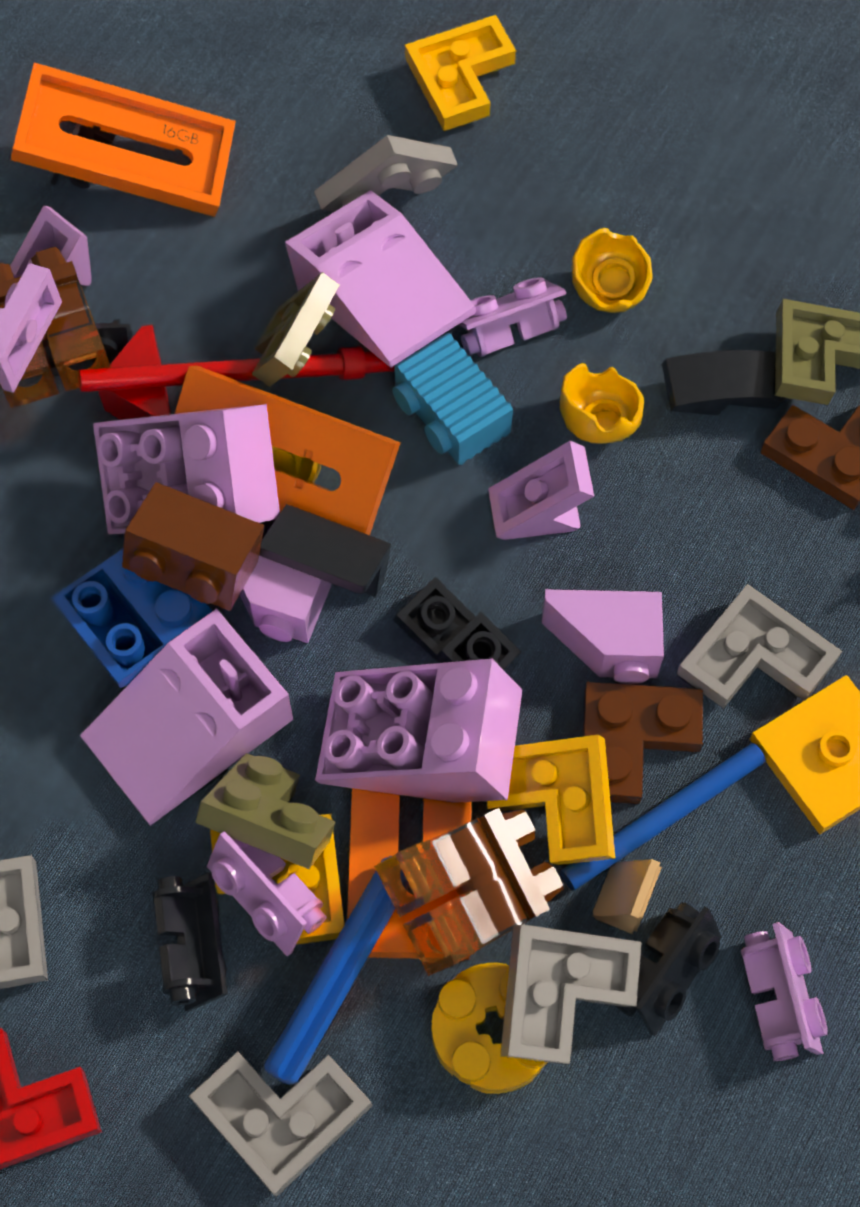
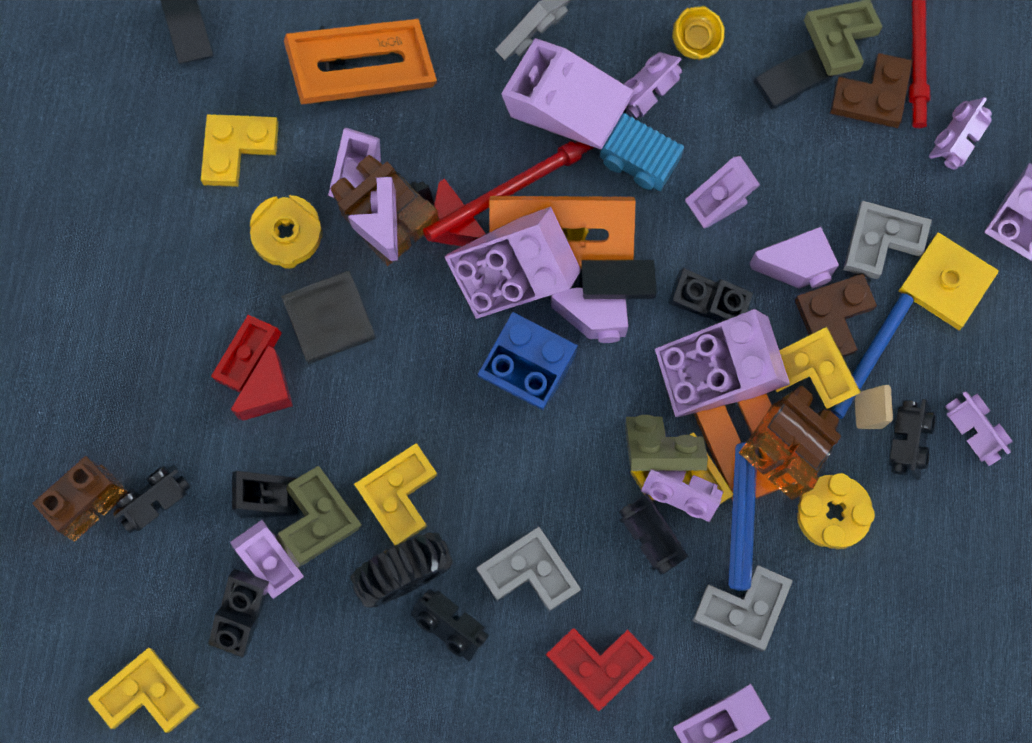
camera: 25 degrees left, 10 degrees up
(187, 717) = (586, 411): lavender slope -> none
(192, 546) = (551, 311): reddish brown brick -> none
(291, 327) = (532, 148): olive plate -> none
(548, 976) = (860, 475): light grey plate -> none
(600, 405) = (730, 122): yellow hair -> none

